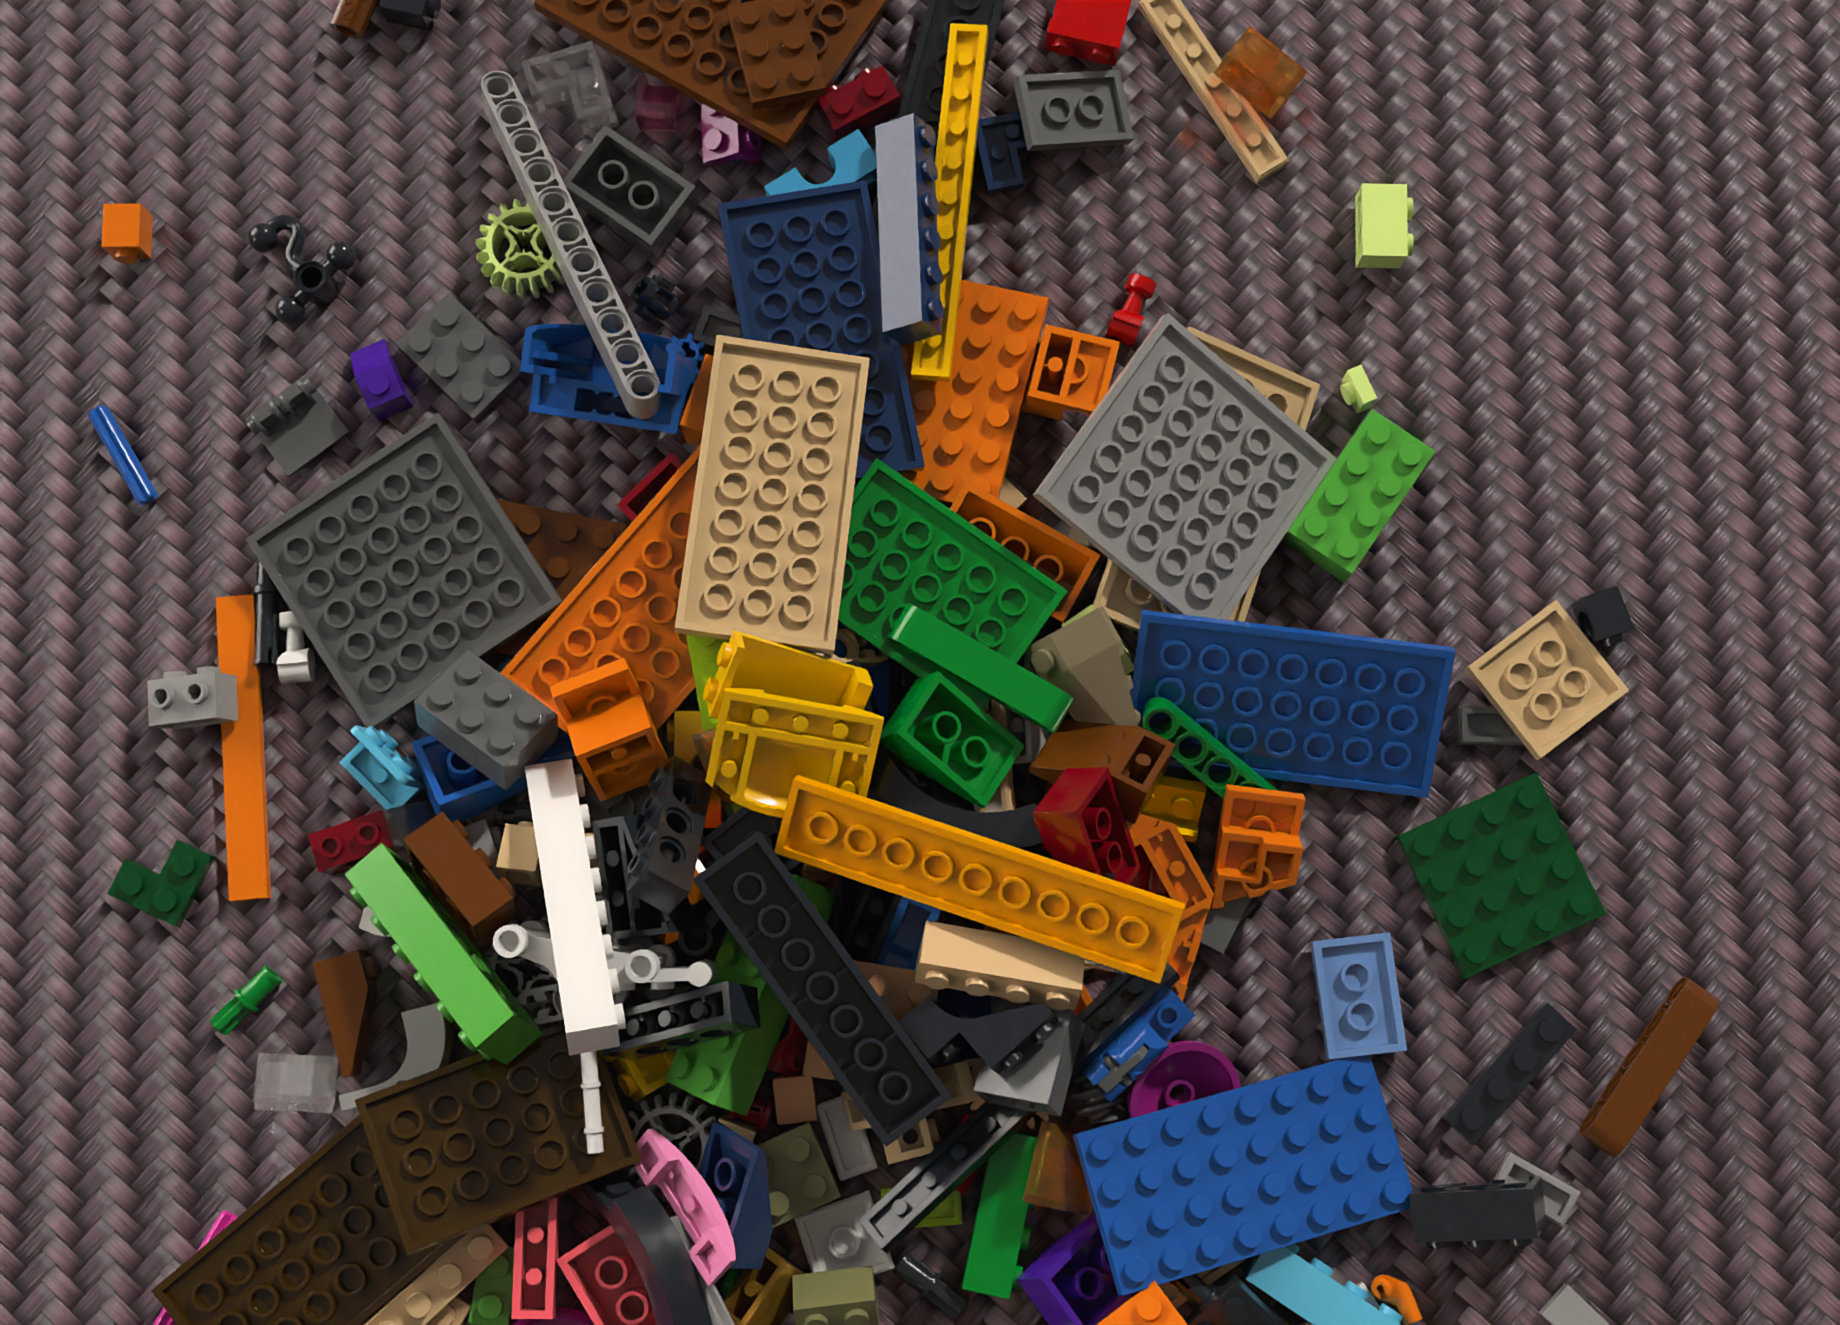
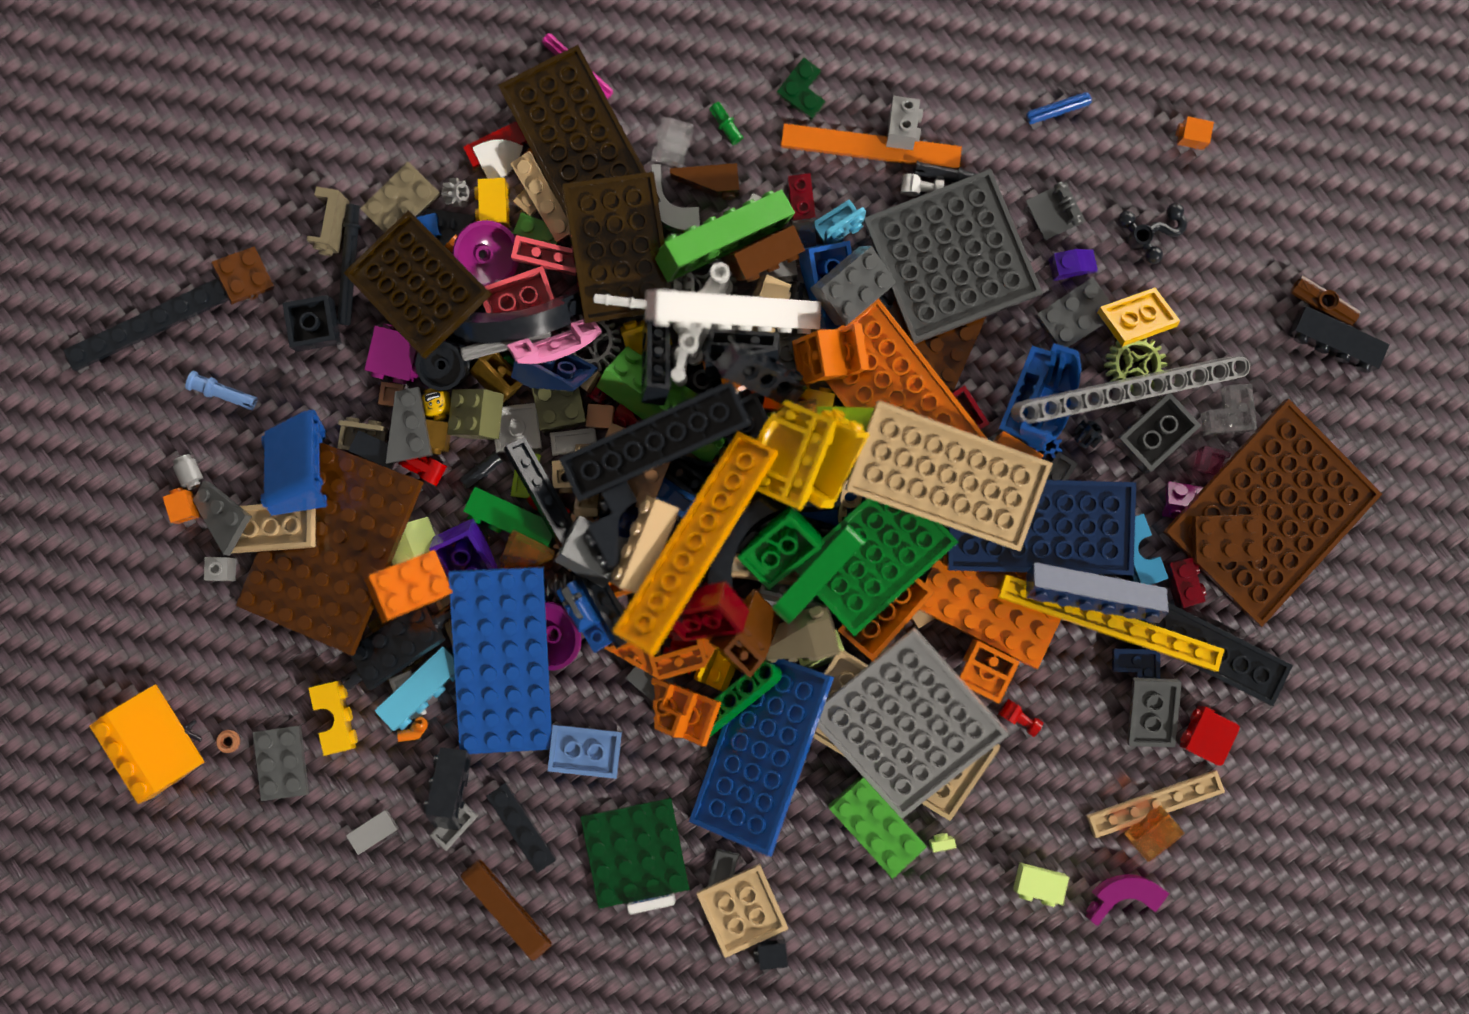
camera: 100 degrees right, 5 degrees up
(447, 257) = (1138, 316): none -> yellow plate
(1357, 107) = (1124, 887): none -> magenta arch
(1576, 827) = (651, 903): none -> white tile

